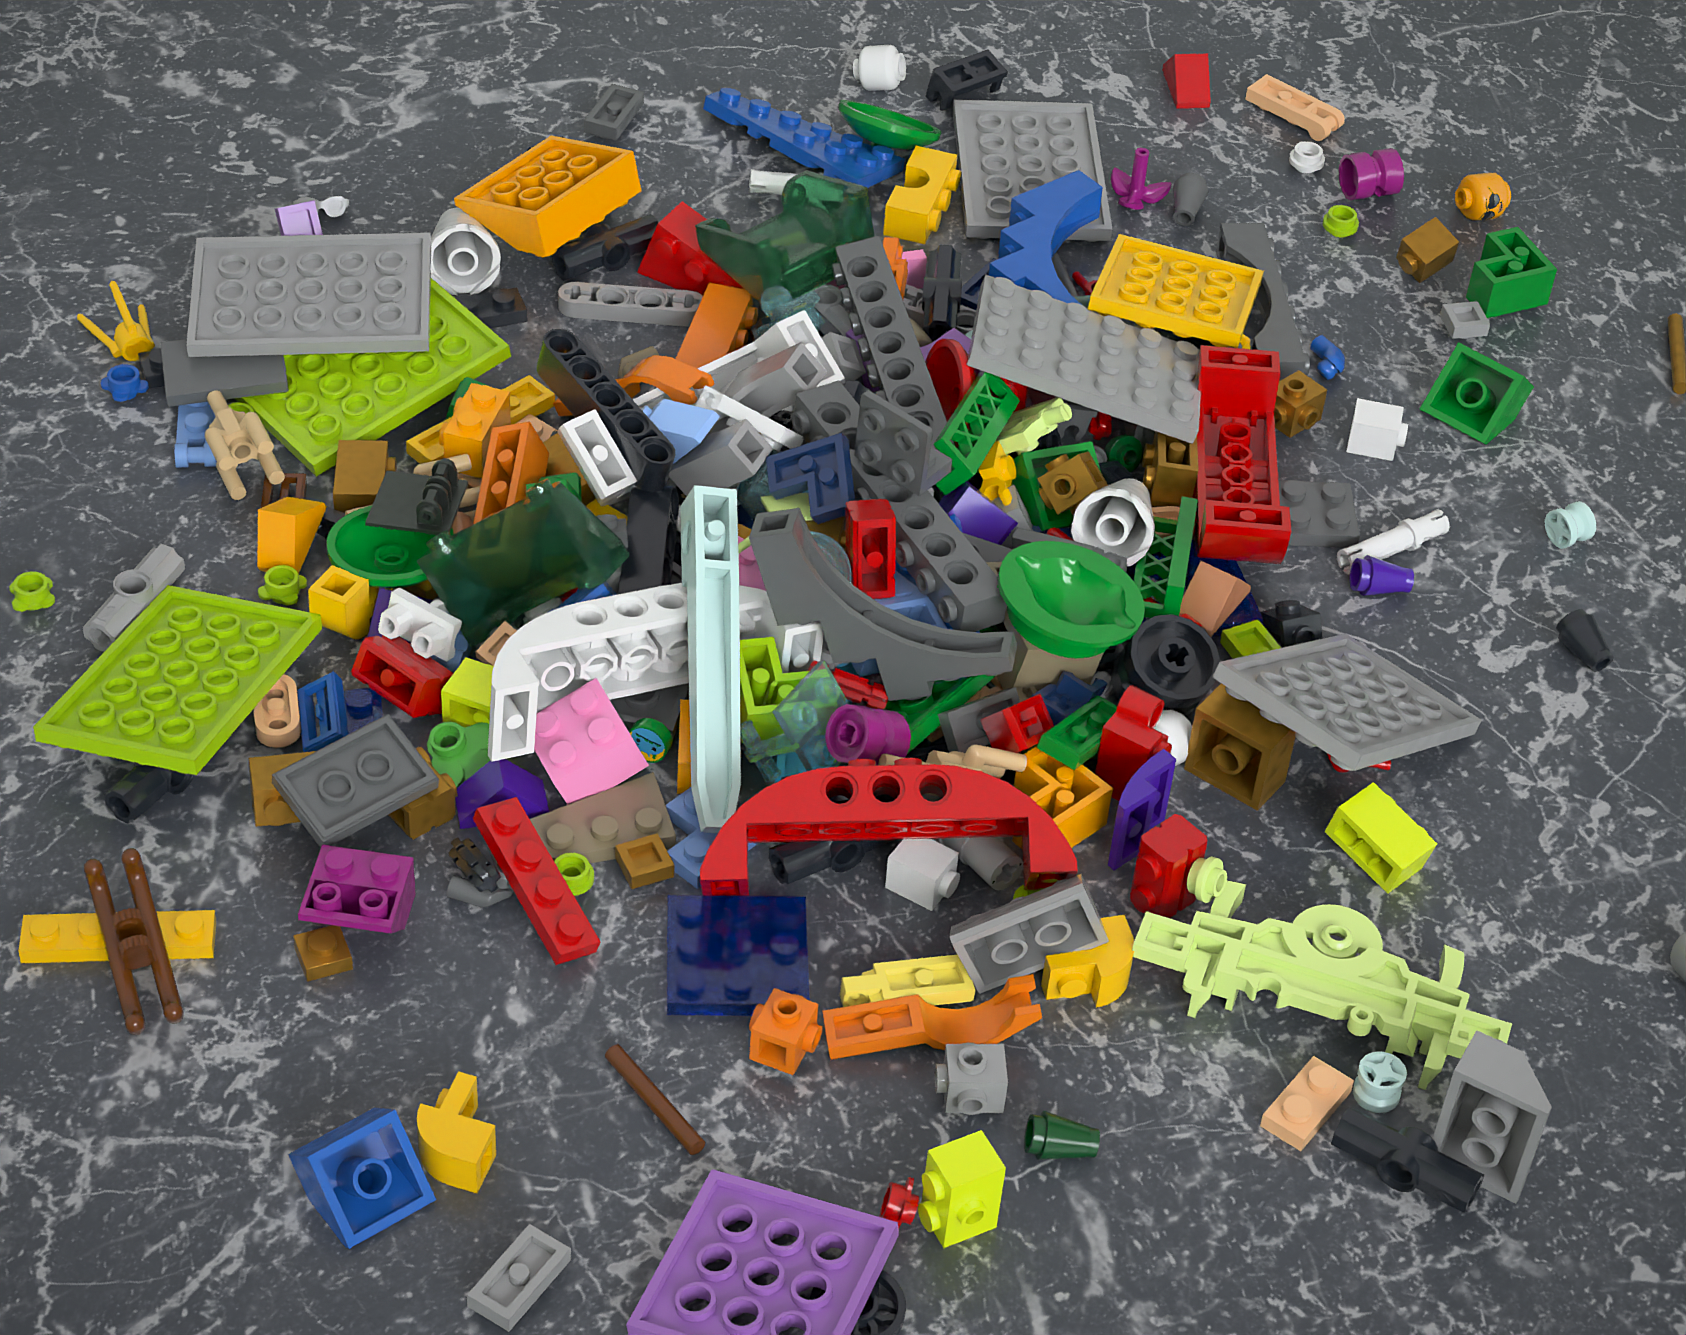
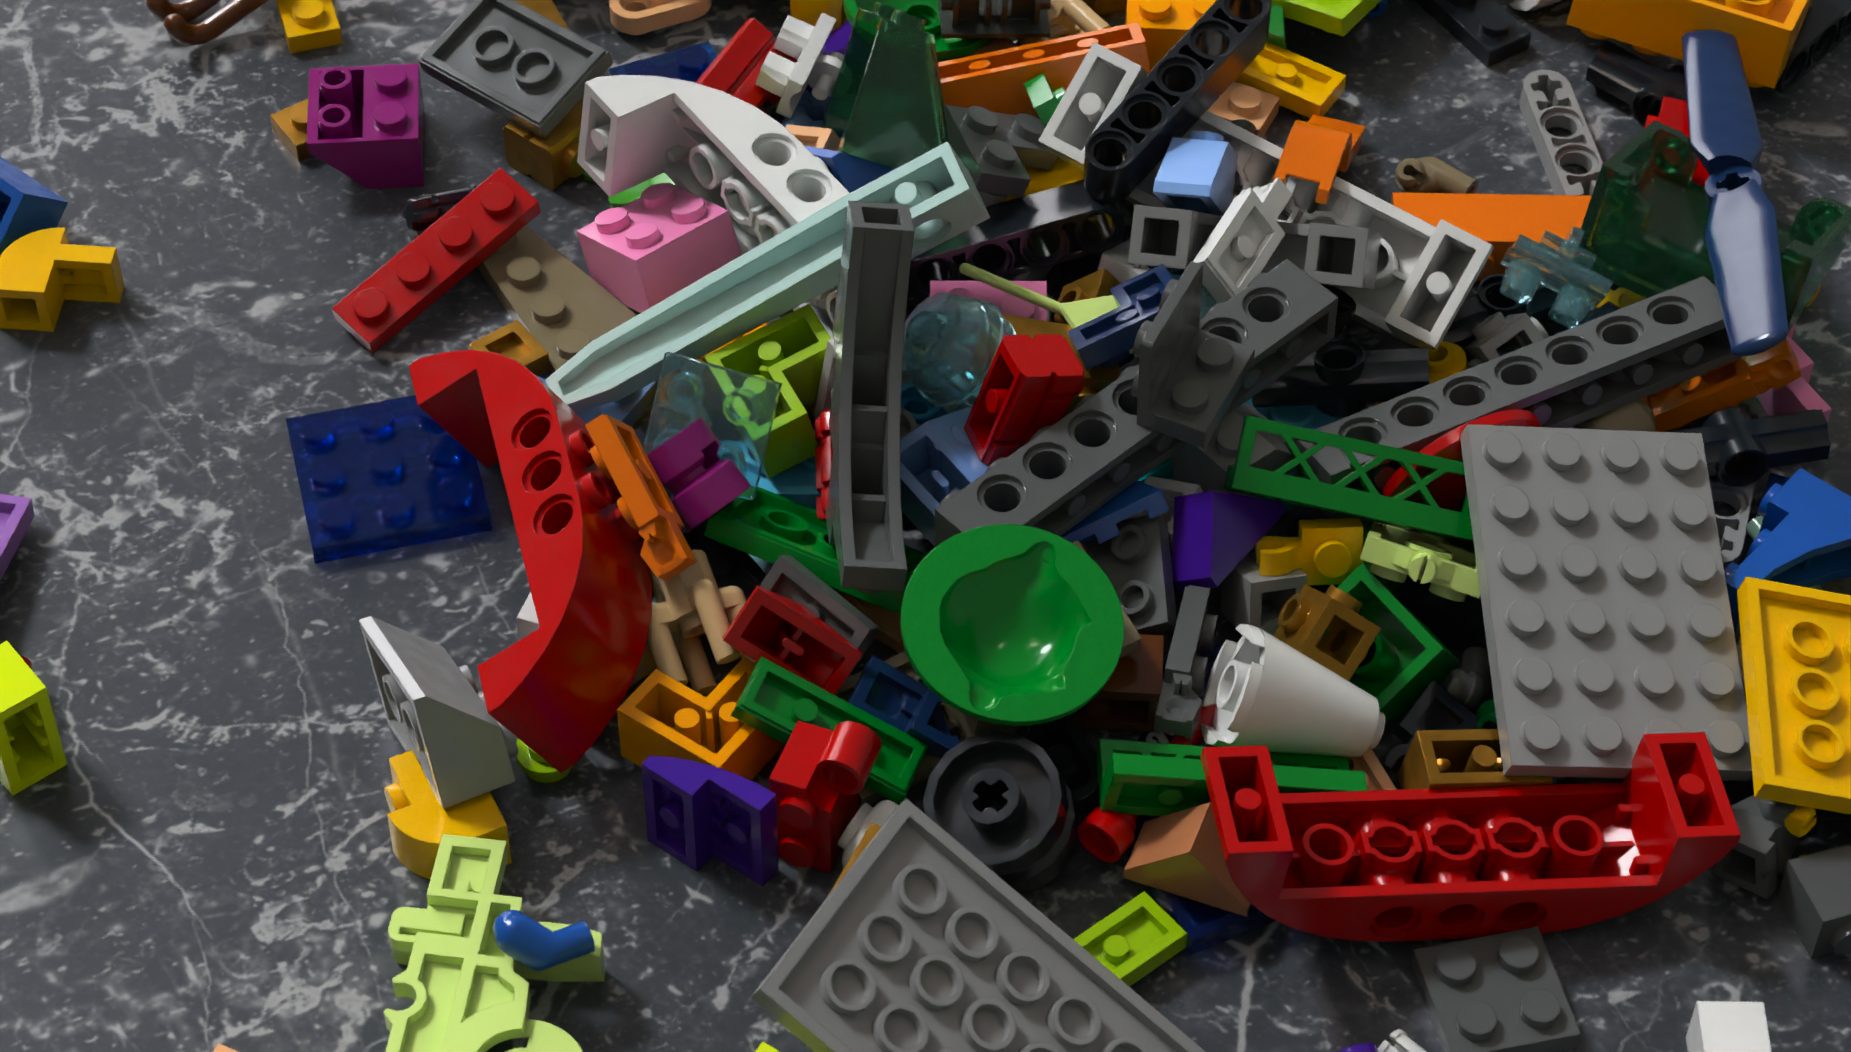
camera: 80 degrees right, 5 degrees up
(329, 710) = (663, 38): blue tile -> none
(496, 783) = (572, 208): dark purple slope -> none
(576, 872) = (473, 299): lime plate -> none
(655, 1099) = (146, 442): reddish brown bar -> none
(784, 1031) = (247, 522): orange brick -> none
(801, 211) = (1741, 219): none -> dark blue piece
(897, 745) = (643, 497): none -> orange hinge
(914, 1022) = (304, 662): orange piece -> none
(934, 979) = (343, 627): light yellow hinge -> none
(972, 1078) = (205, 715): light grey brick -> none
(1058, 1137) = (140, 824): dark green cone -> none
(1164, 866) = (604, 862): red brick -> none
(1207, 878) = (579, 897): yellowish green plate -> none
(1247, 899) = (537, 945): none -> blue arm
(1293, 623) = (1200, 984): black bracket -> none
(1298, 403) = (1722, 926): pearl gold brick -> none

